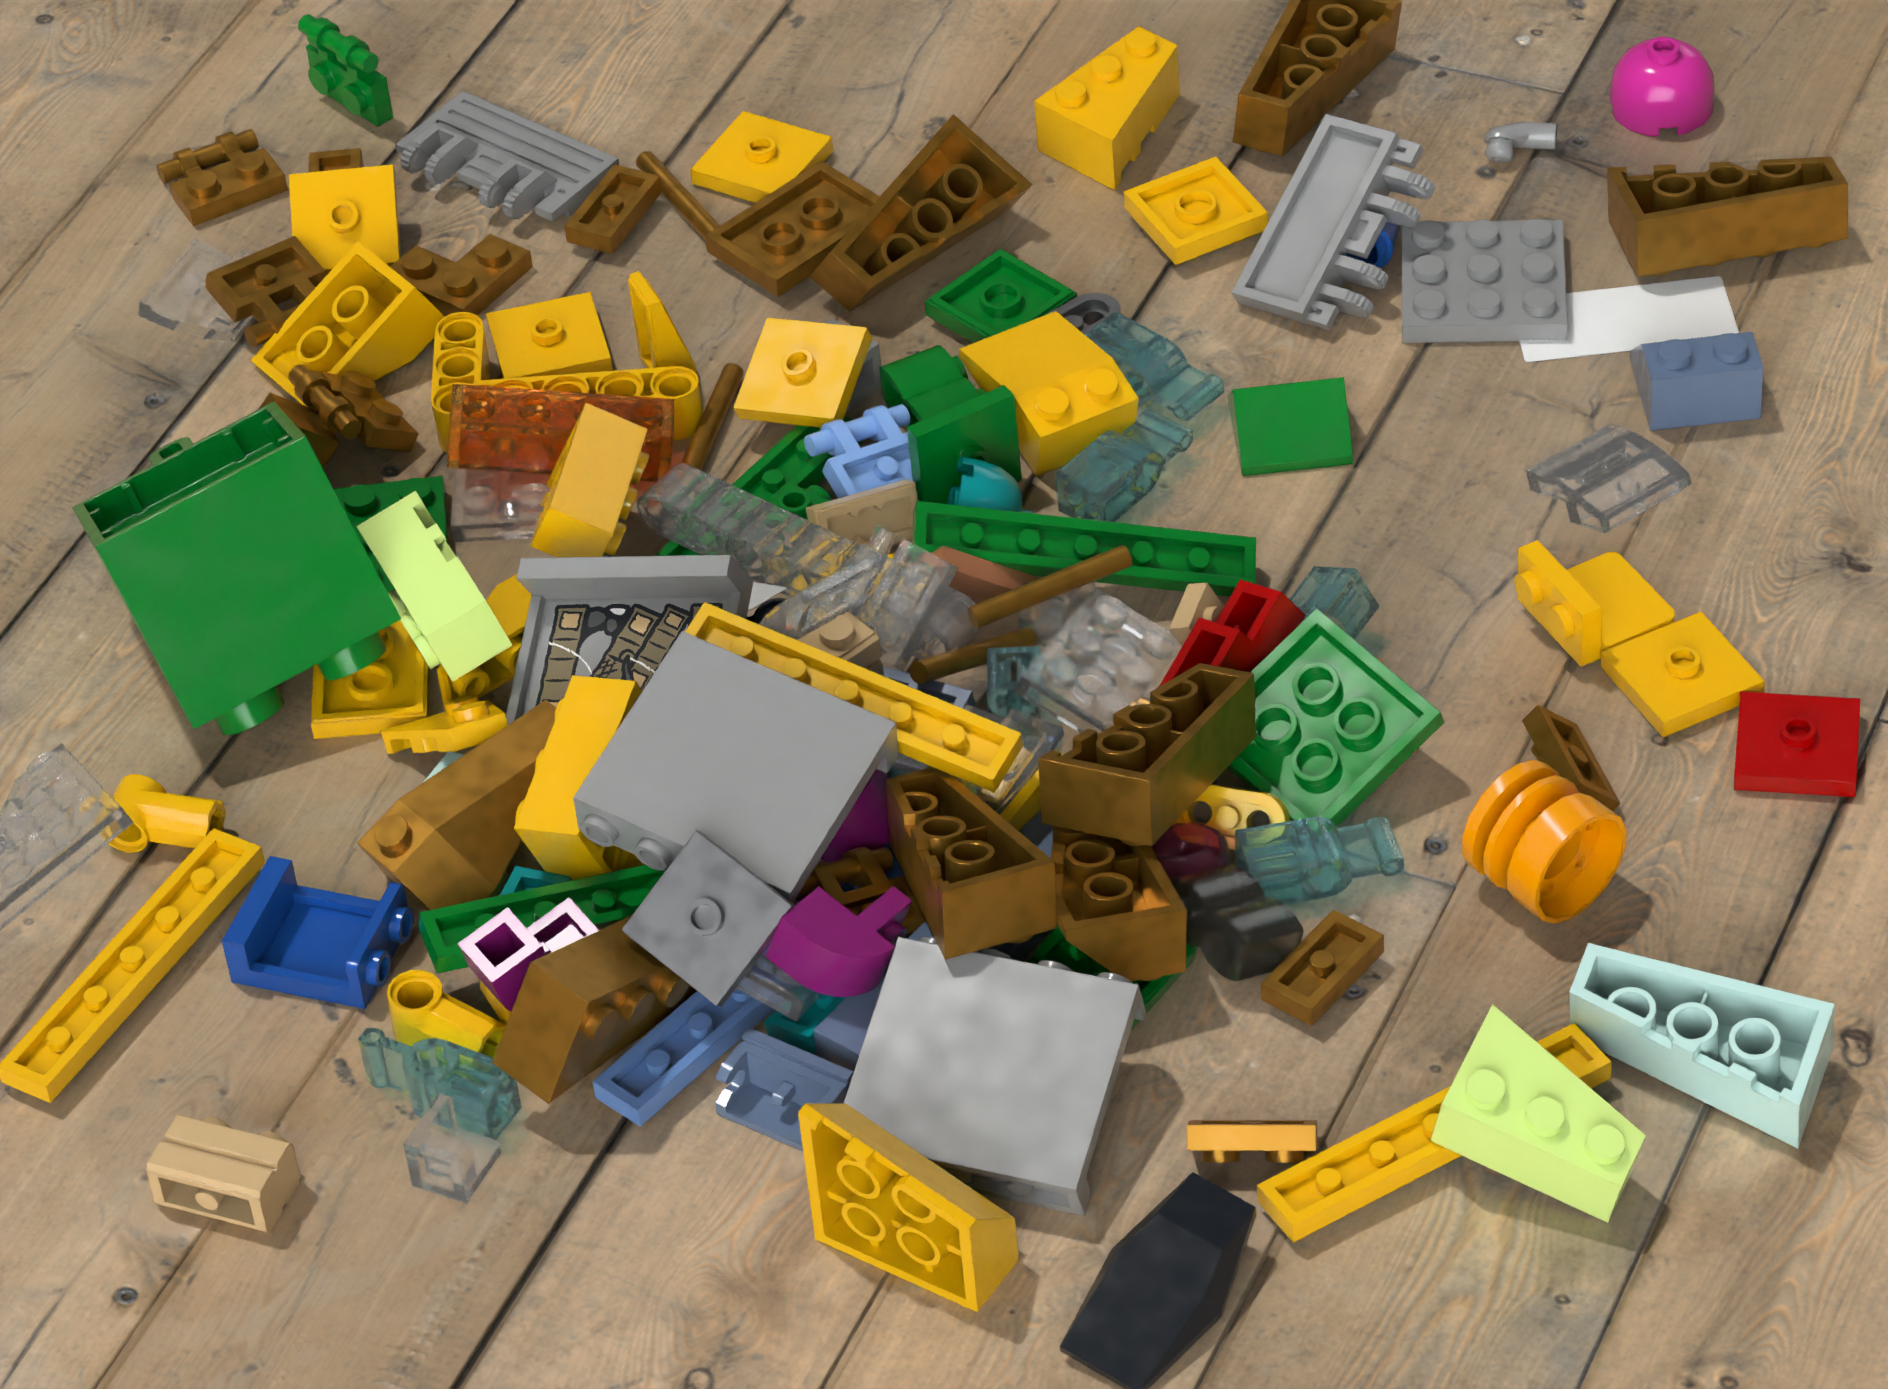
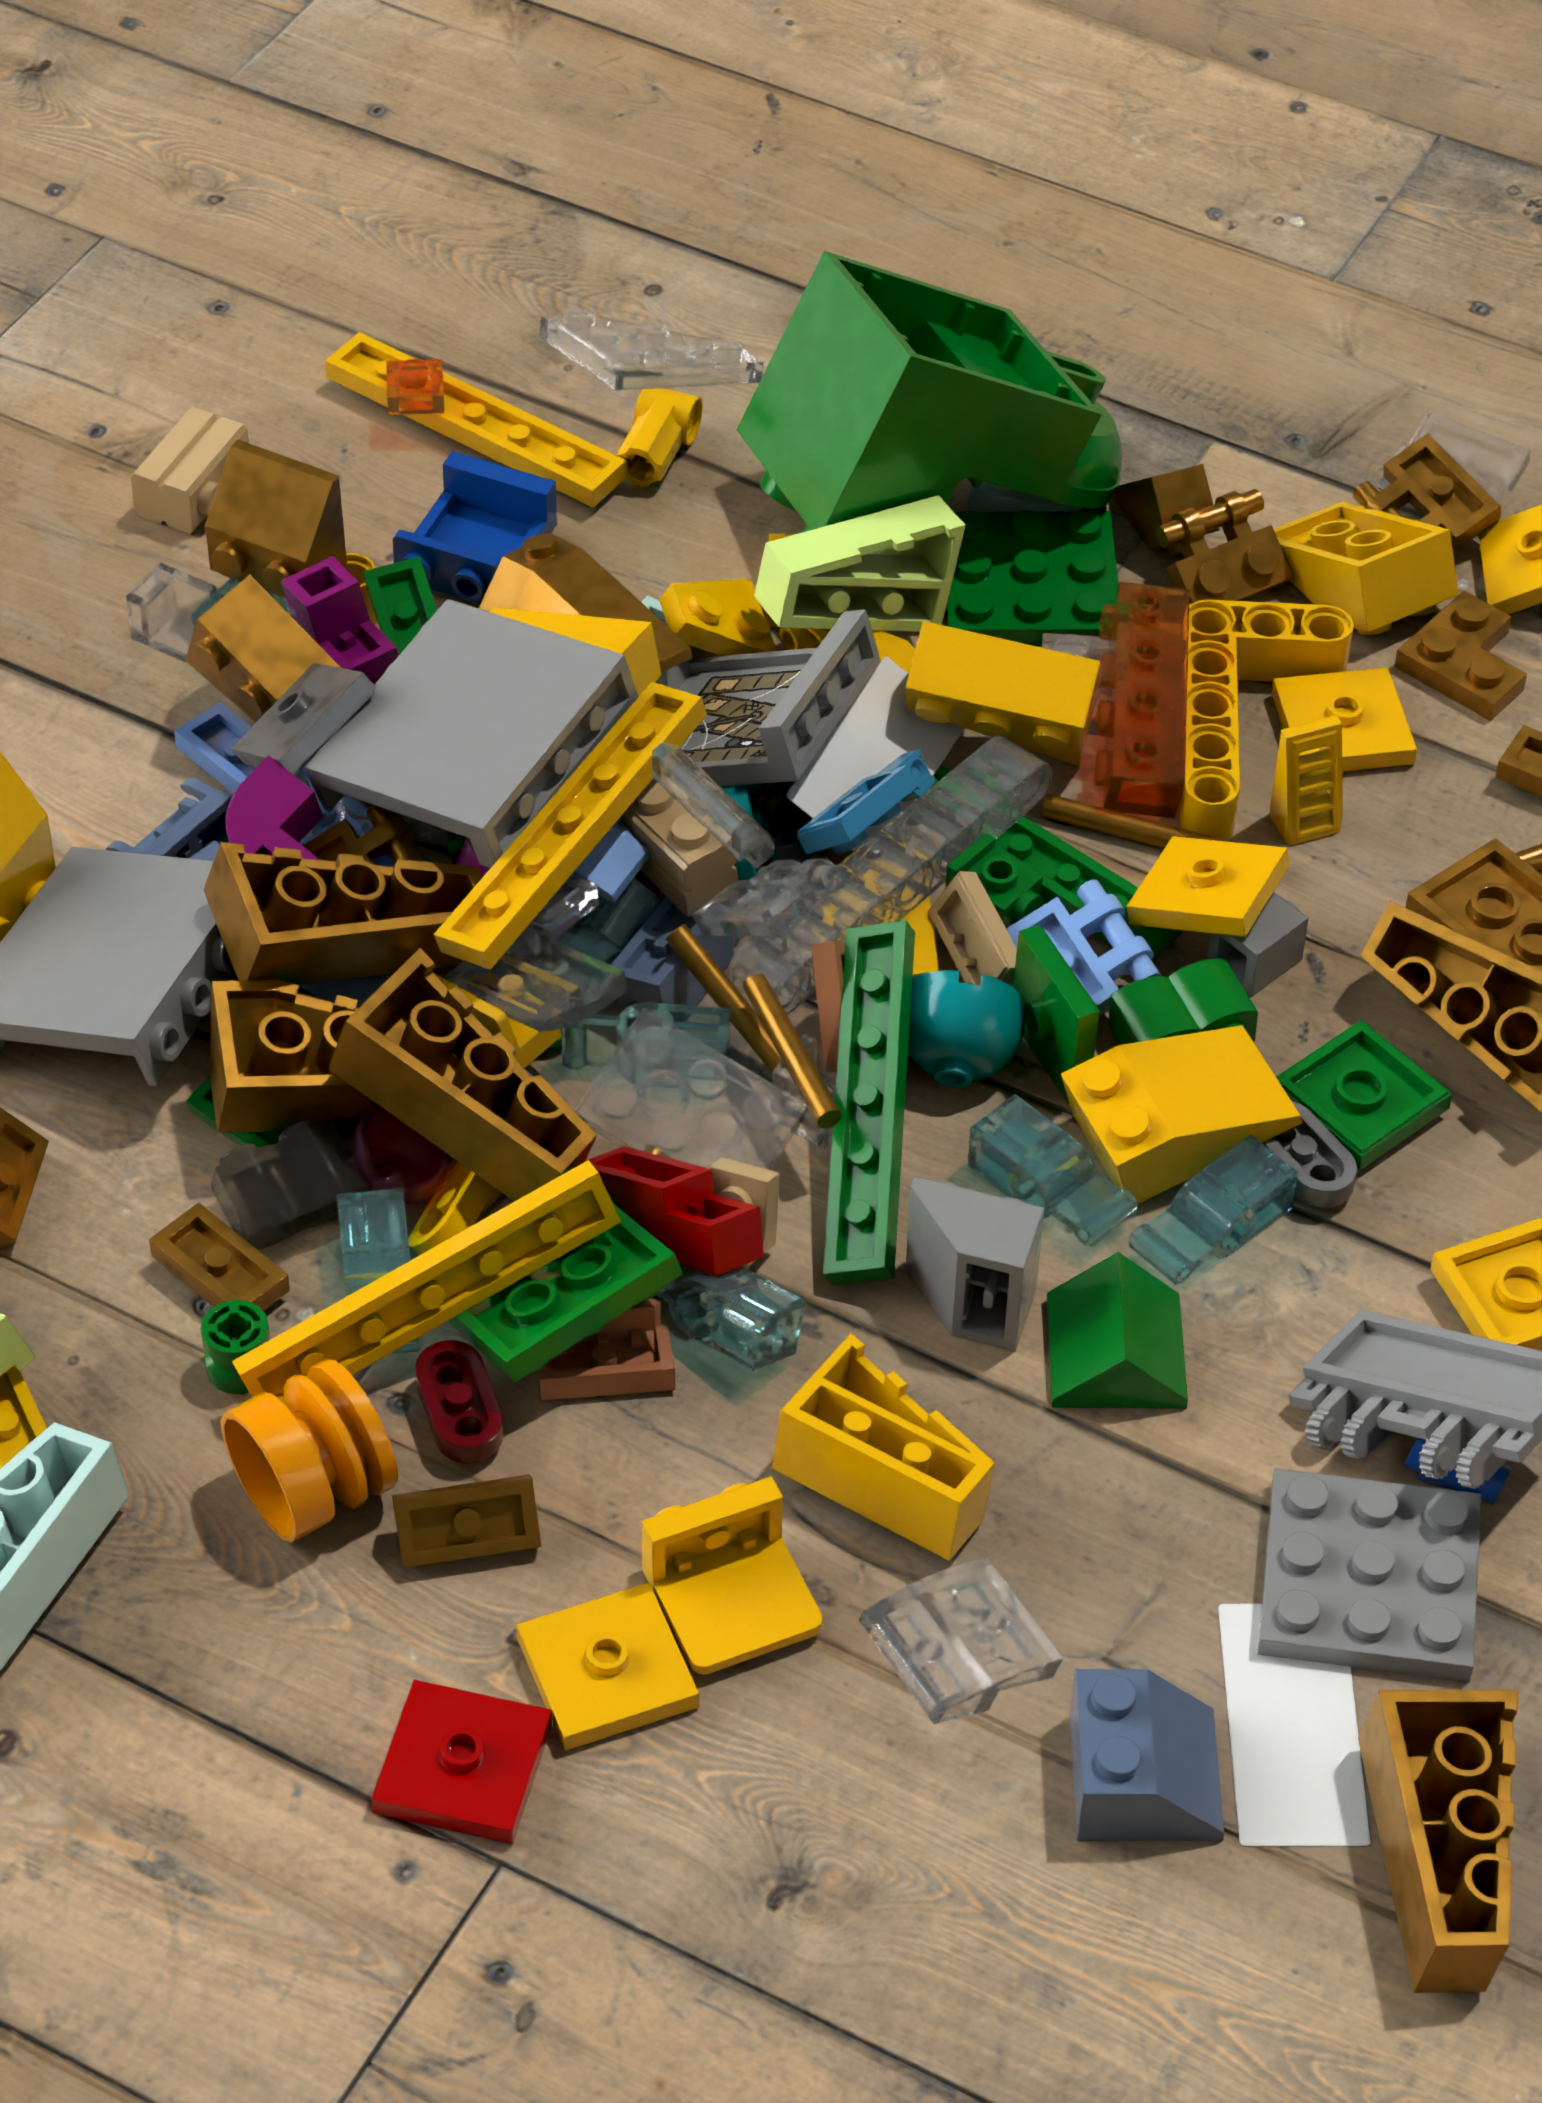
camera: 90 degrees right, 5 degrees up
(105, 995) = (415, 387): none -> clear orange plate
(398, 1009) = (273, 517): none -> pearl gold slope
(774, 563) = (866, 805): none -> dark azure hinge
(1252, 469) = (974, 1259): none -> light grey slope
(1376, 799) = (438, 1282): none -> yellow plate
(1418, 934) = (227, 1334): none -> green wheel
(1439, 788) = (462, 1406): none -> dark red plate
(1450, 522) = (882, 1454): none -> yellow wedge

